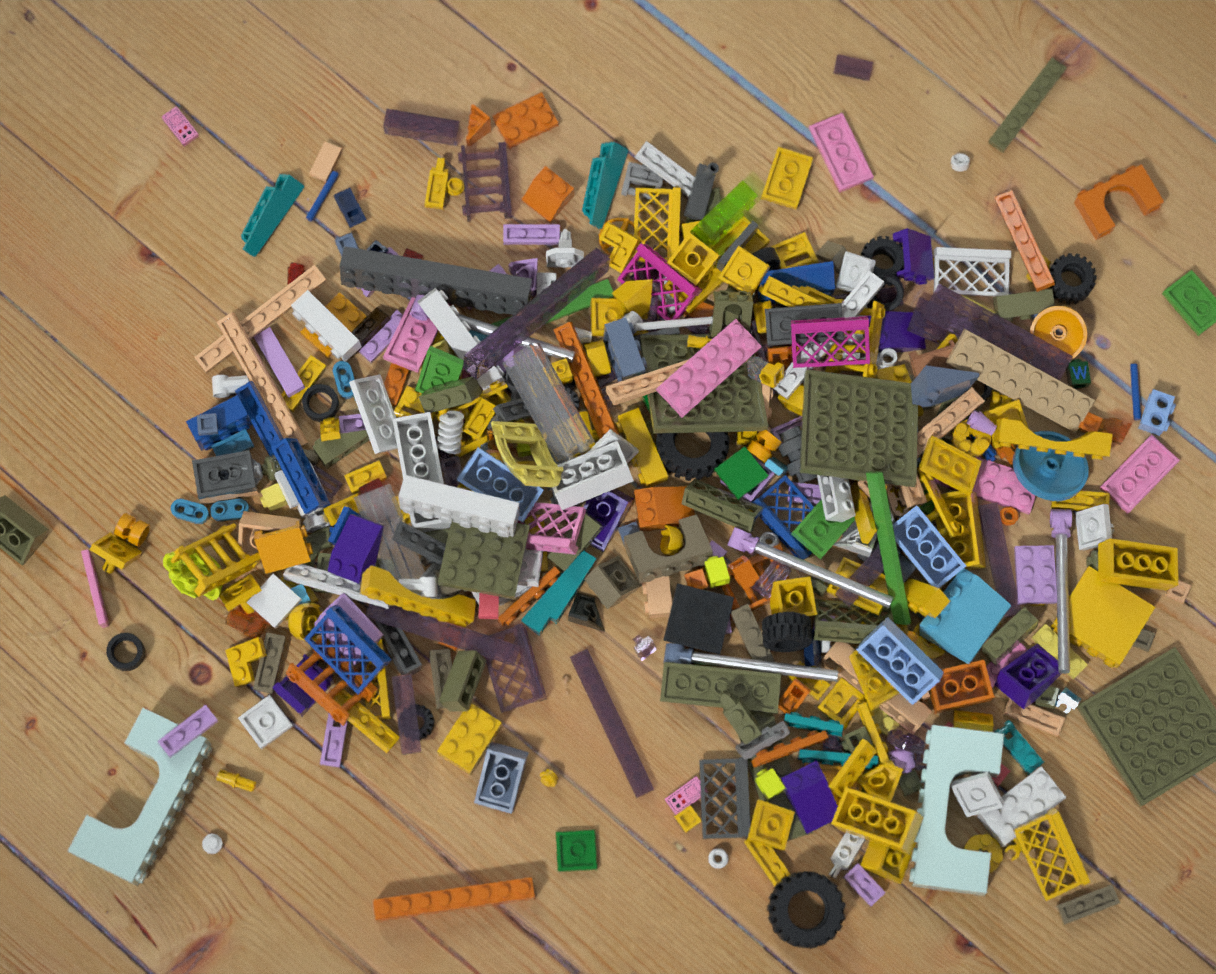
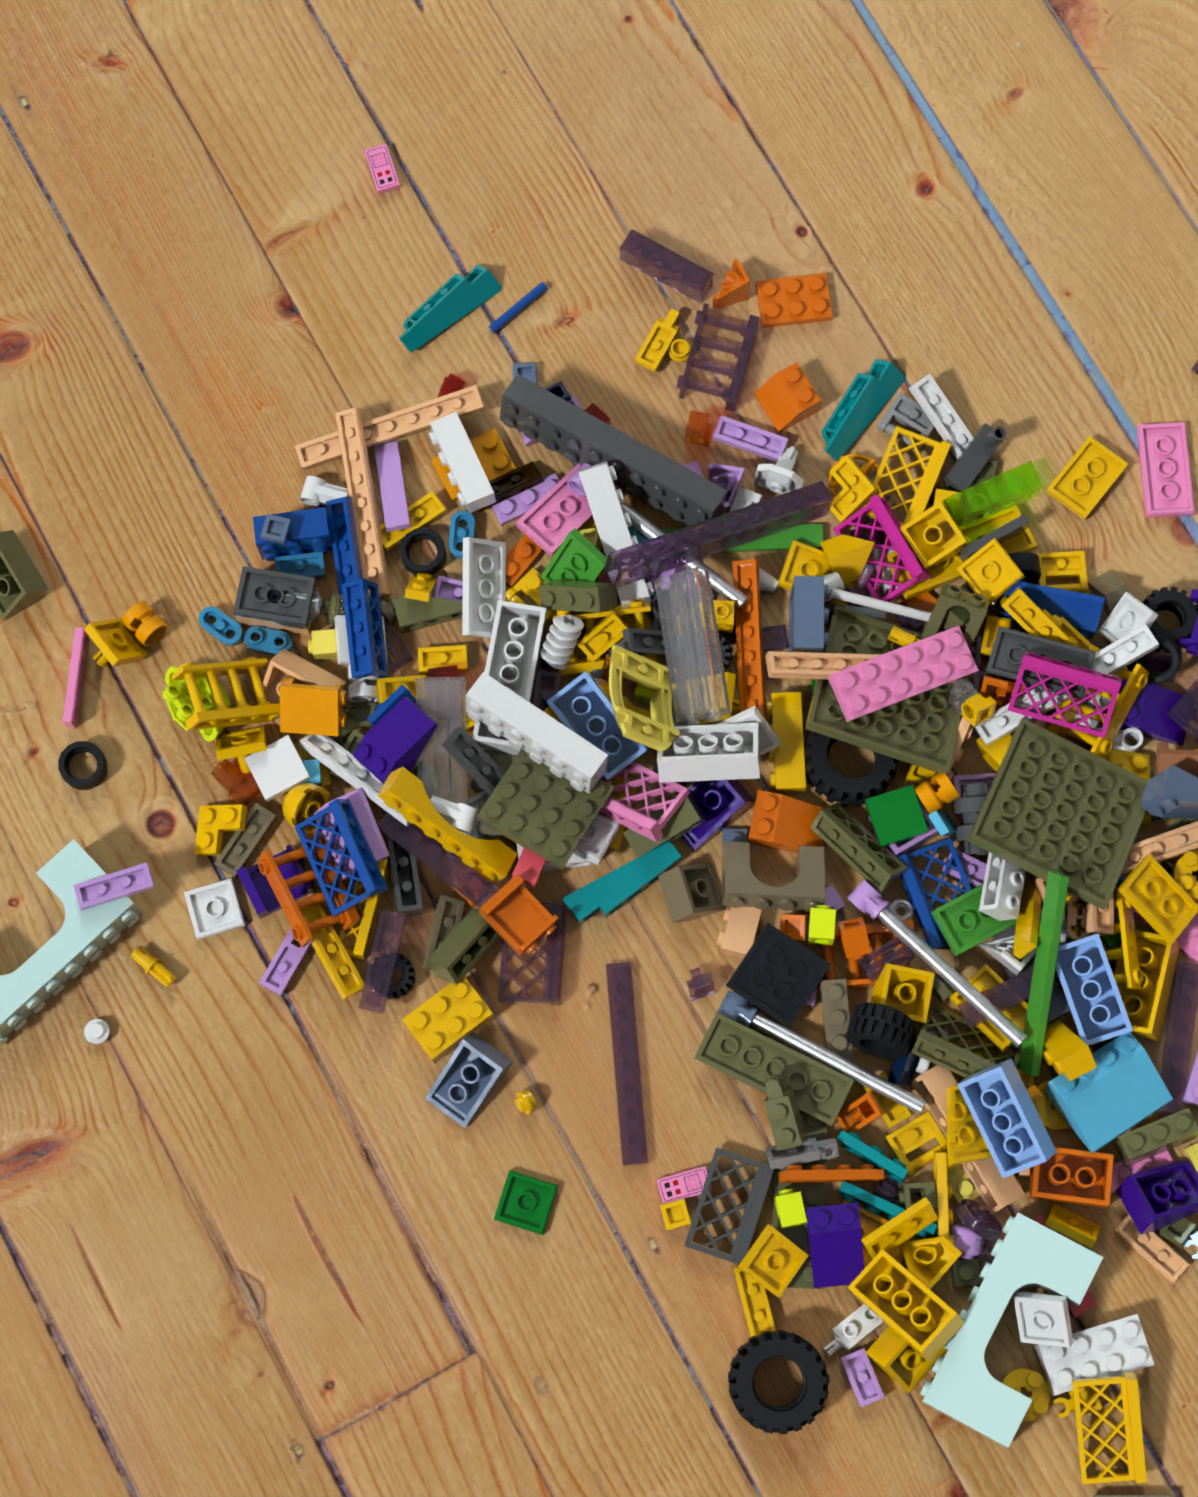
camera: 25 degrees right, 0 degrees up
(325, 161) = (537, 268): light nougat tile -> none
(349, 207) = (545, 332): dark blue slope -> none
(453, 899) = (356, 1206): orange brick -> none
(491, 240) = (698, 428): none -> clear orange brick
(494, 645) = (518, 916): none -> orange panel
(524, 601) = (574, 878): orange plate -> none
(585, 612) = (645, 917): pearl dark grey slope -> none
(598, 357) = (774, 615): yellow slope -> none
(671, 541) = (781, 868): yellow hair -> none
(720, 852) = (686, 1277): white plate -> none
(1020, 748) = (1118, 1280): teal plate -> none

